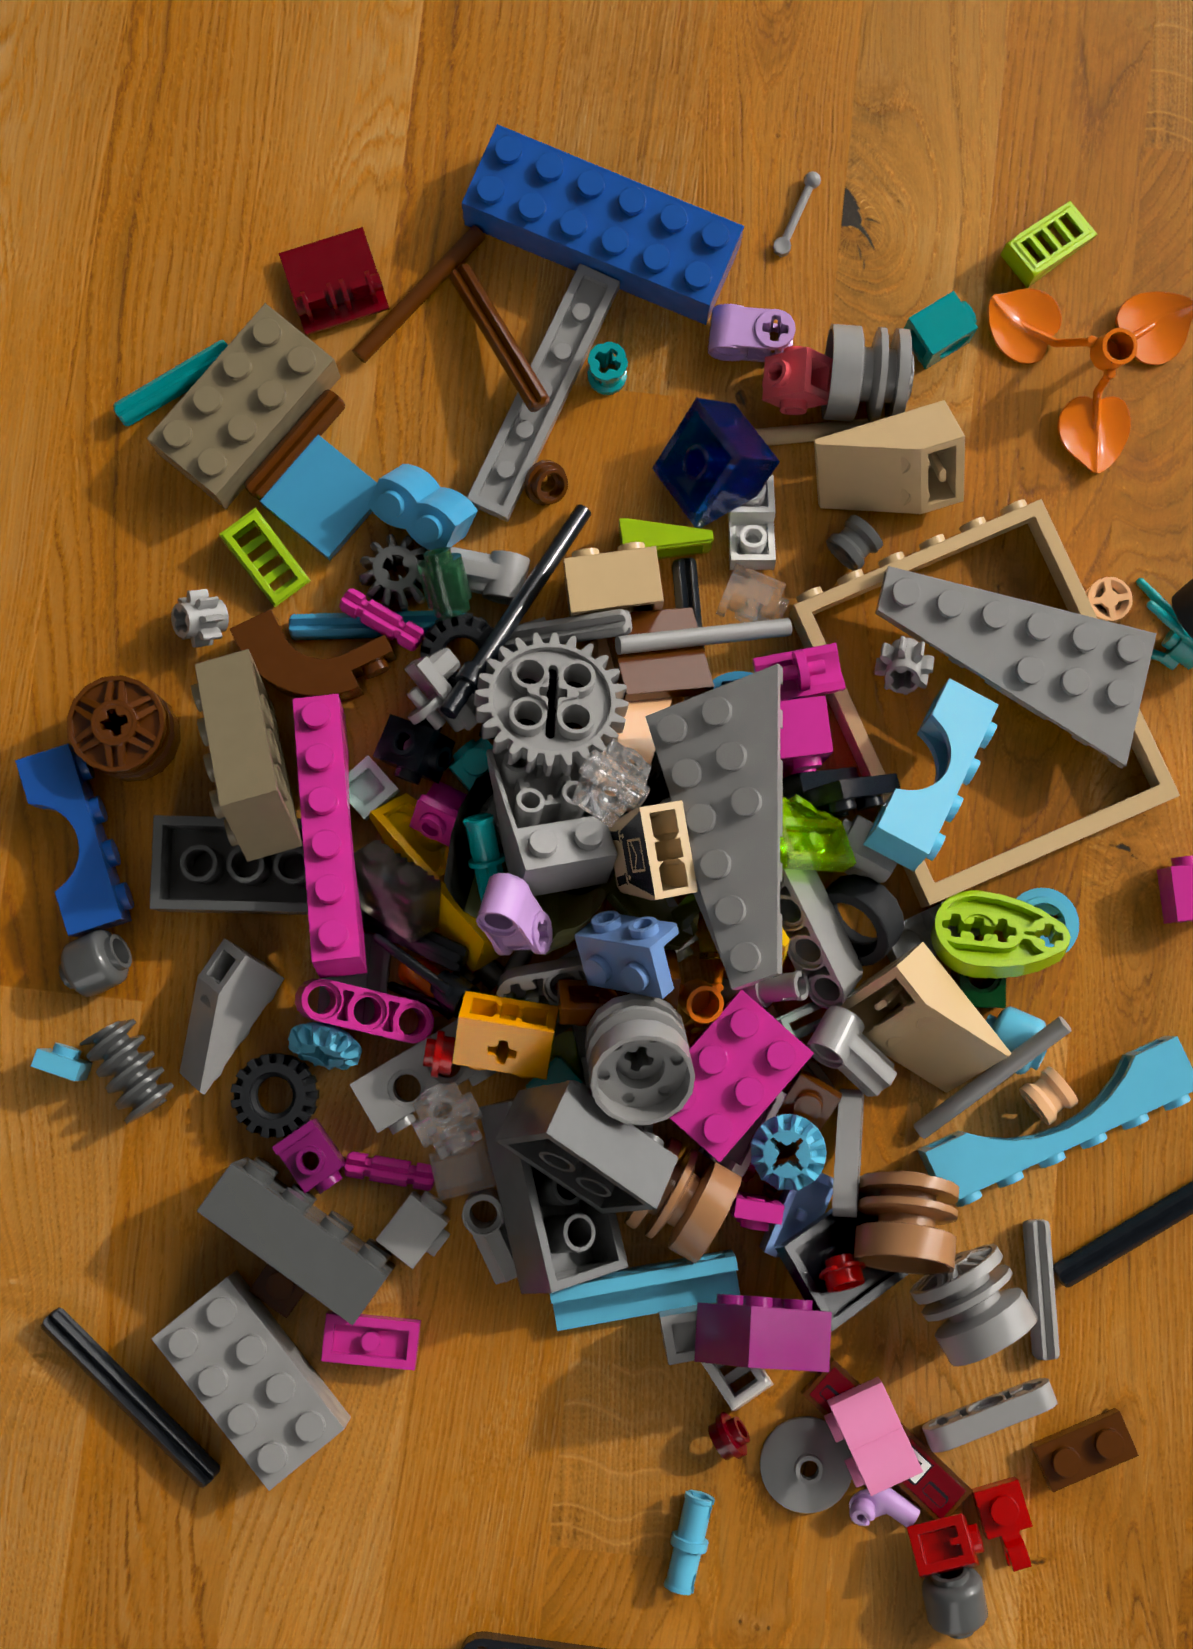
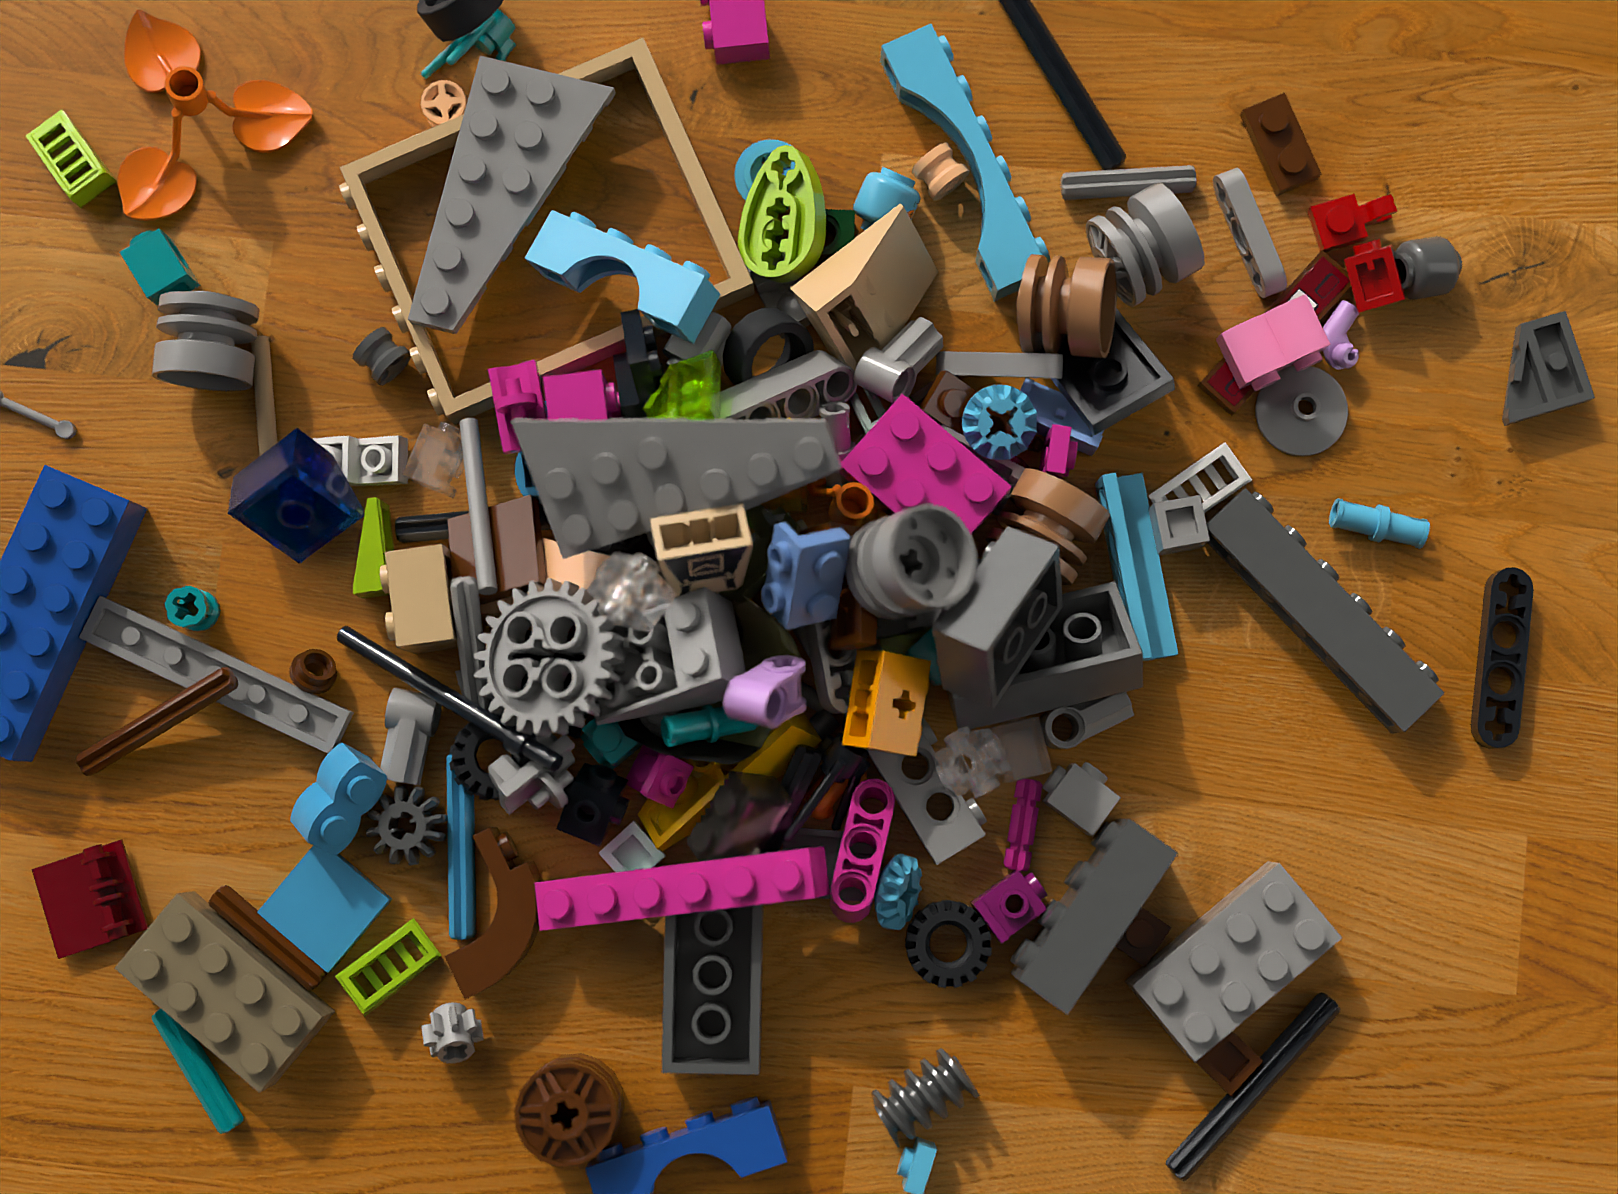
camera: 80 degrees left, 0 degrees up
(95, 963) = (814, 1134): dark grey head -> none
(151, 1374) = (1229, 1062): none -> reddish brown plate
(224, 1008) = (861, 997): light grey slope -> none
(245, 756) = (600, 976): dark tan brick -> none
(371, 1341) = (1194, 835): dark pink plate -> none
(381, 619) = (456, 839): dark pink axle -> none
(419, 294) = (106, 808): reddish brown bar -> none
(439, 1054) = (906, 770): red plate -> none
(445, 582) = (419, 772): clear green brick -> none
(597, 1480) = (1322, 612): none -> dark grey brick
(729, 1436) = (1277, 483): dark red plate -> none
(745, 332) = (159, 468): lavender piece -> none
(763, 1333) = (1177, 446): magenta brick -> none
(797, 379) = (209, 411): coral brick -> none
(842, 1273) = (1117, 368): red plate -> none
(894, 463) = (300, 313): tan slope -> none
(904, 665) = (510, 303): light grey gear -> none
(992, 1077) = (924, 224): light grey bar -> none

